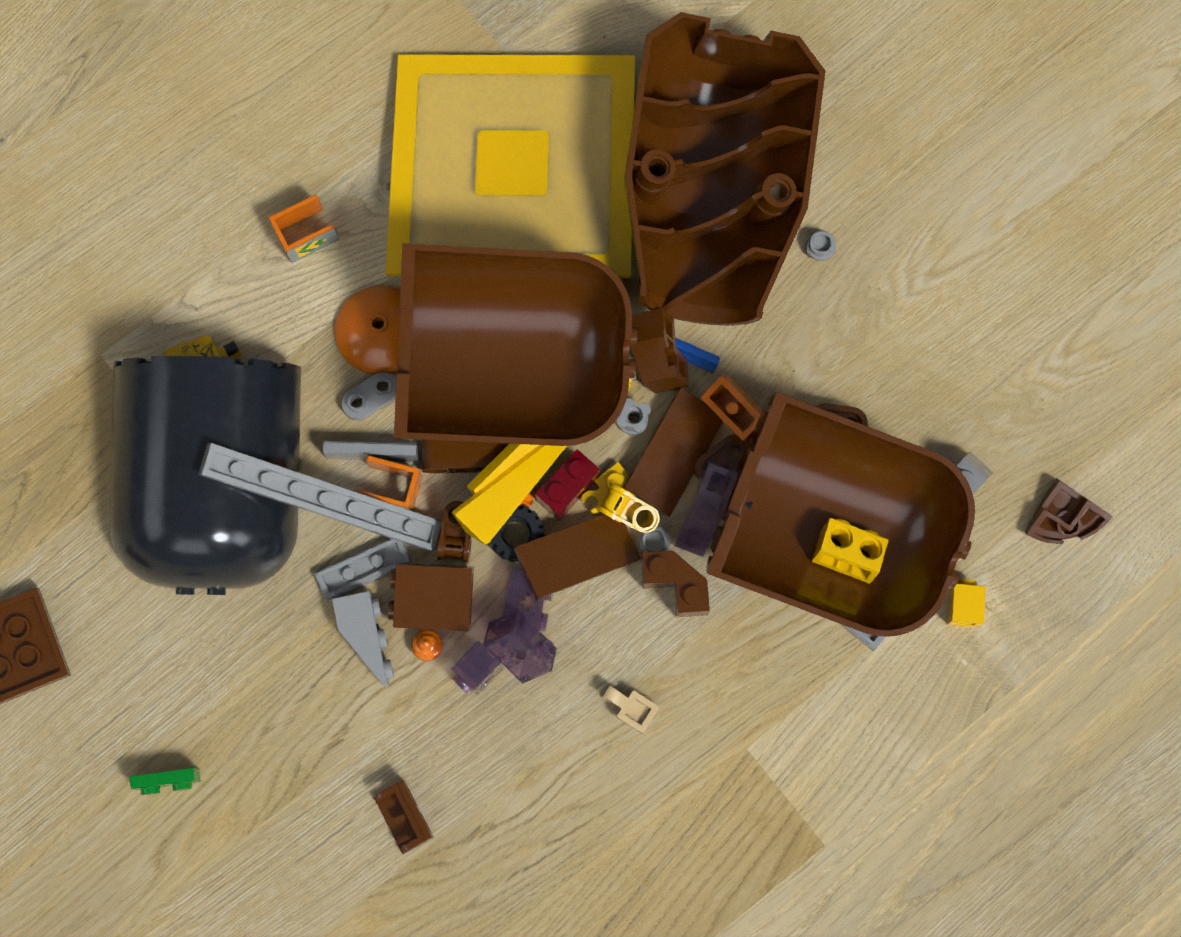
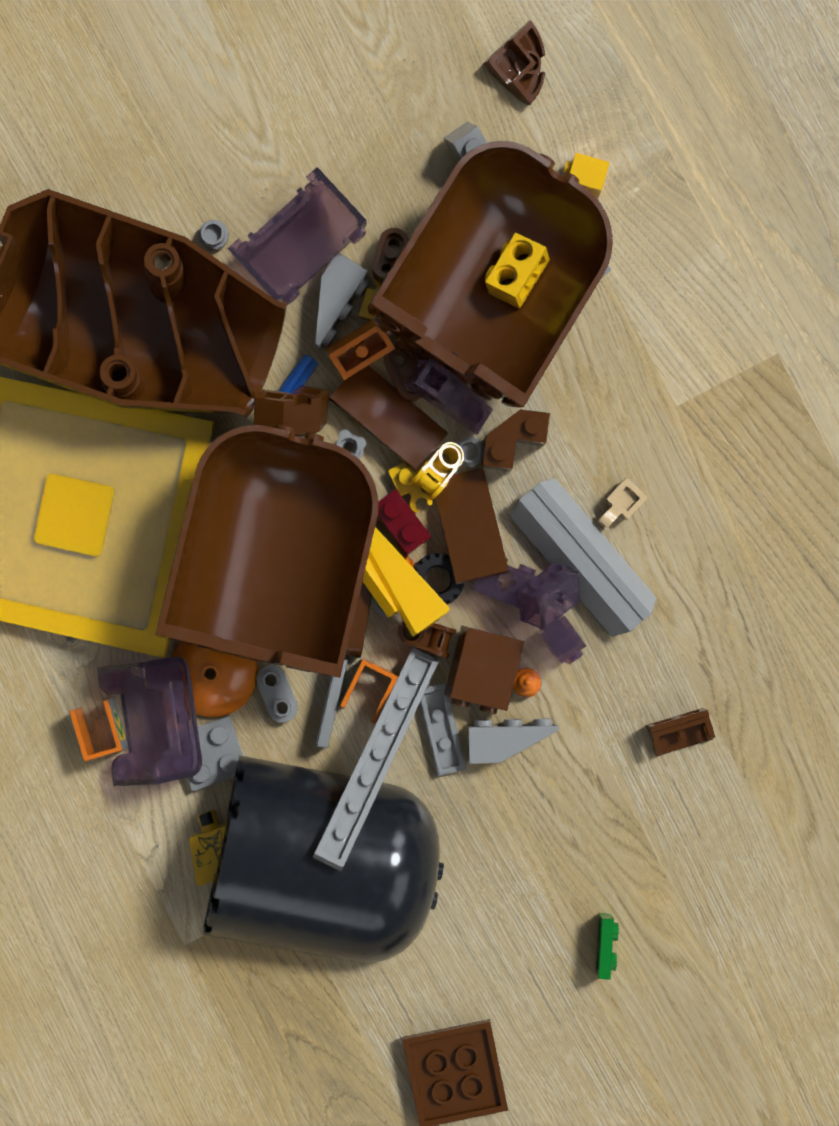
camera: 80 degrees left, 10 degrees up
(299, 340) = (219, 753): none -> light grey plate
(321, 283) = (156, 719): none -> clear purple windscreen
(582, 666) = (570, 538): none -> light grey piece
(787, 375) = (338, 289): none -> light grey slope
(831, 325) = (300, 239): none -> clear purple windscreen

